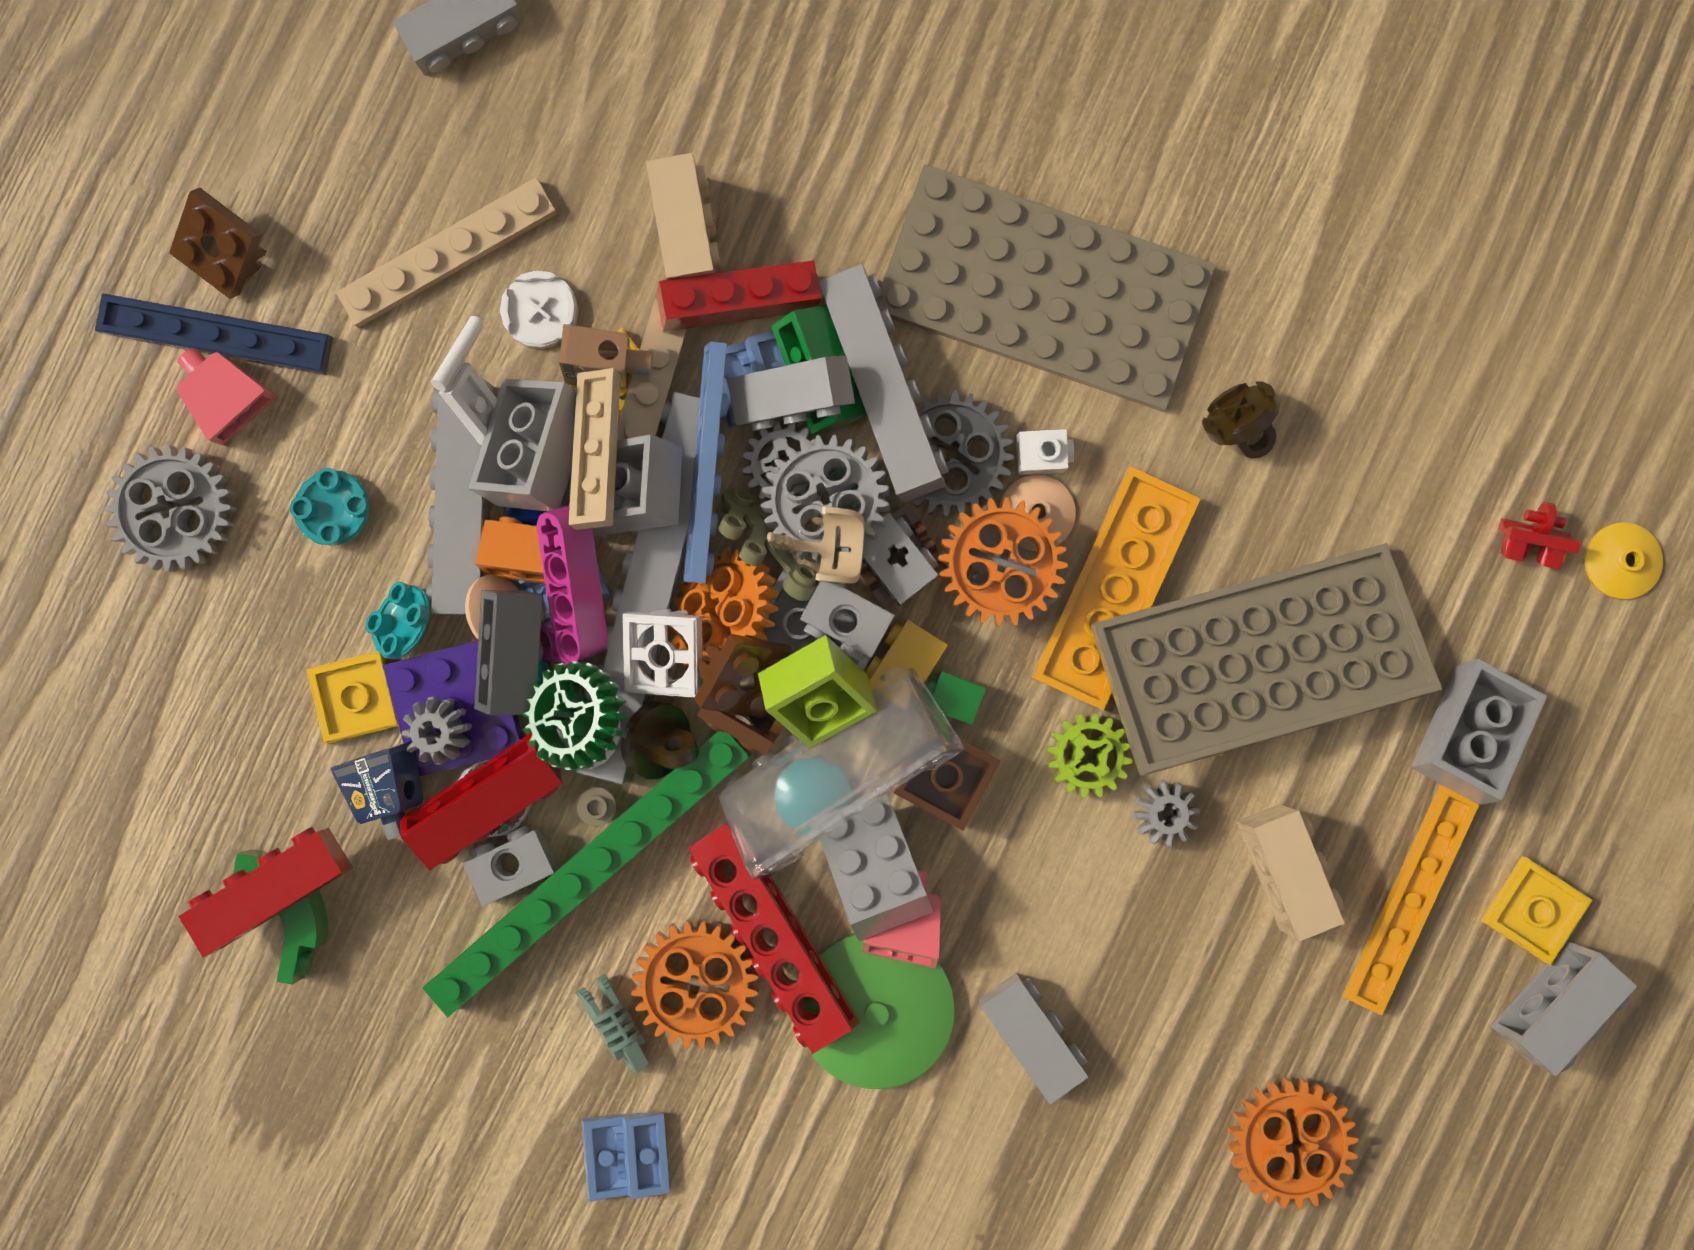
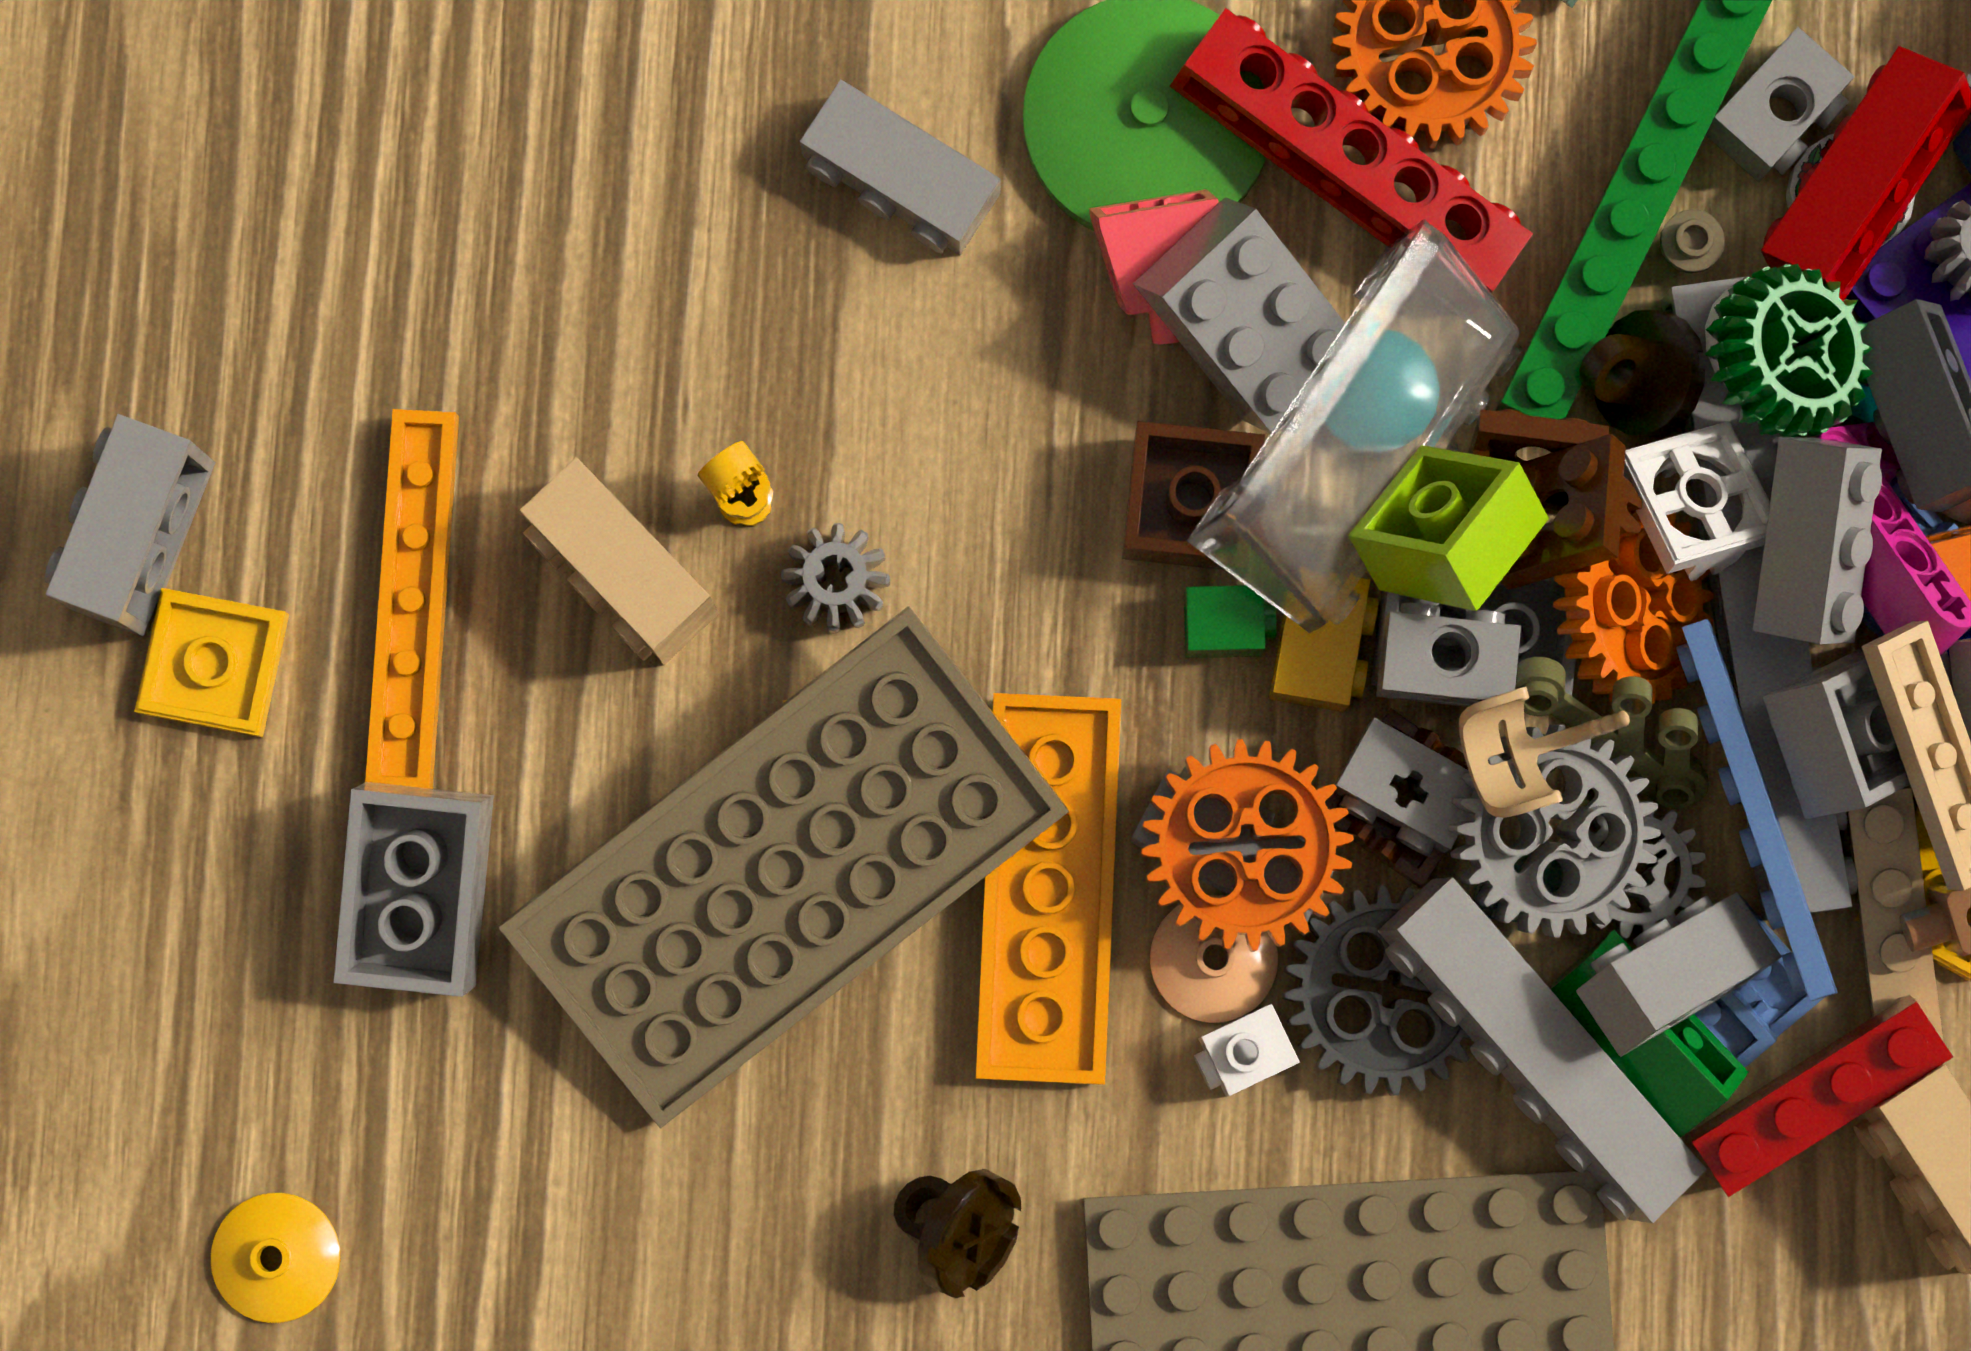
camera: 160 degrees right, 5 degrees down
(607, 599) = (1817, 540): none -> light grey brick
(1099, 768) = (1012, 632): lime gear -> none
(1209, 895) = (729, 474): none -> yellow connector
(1326, 1138) = (403, 195): orange gear -> none
(1554, 543) = (428, 1243): red hips -> none

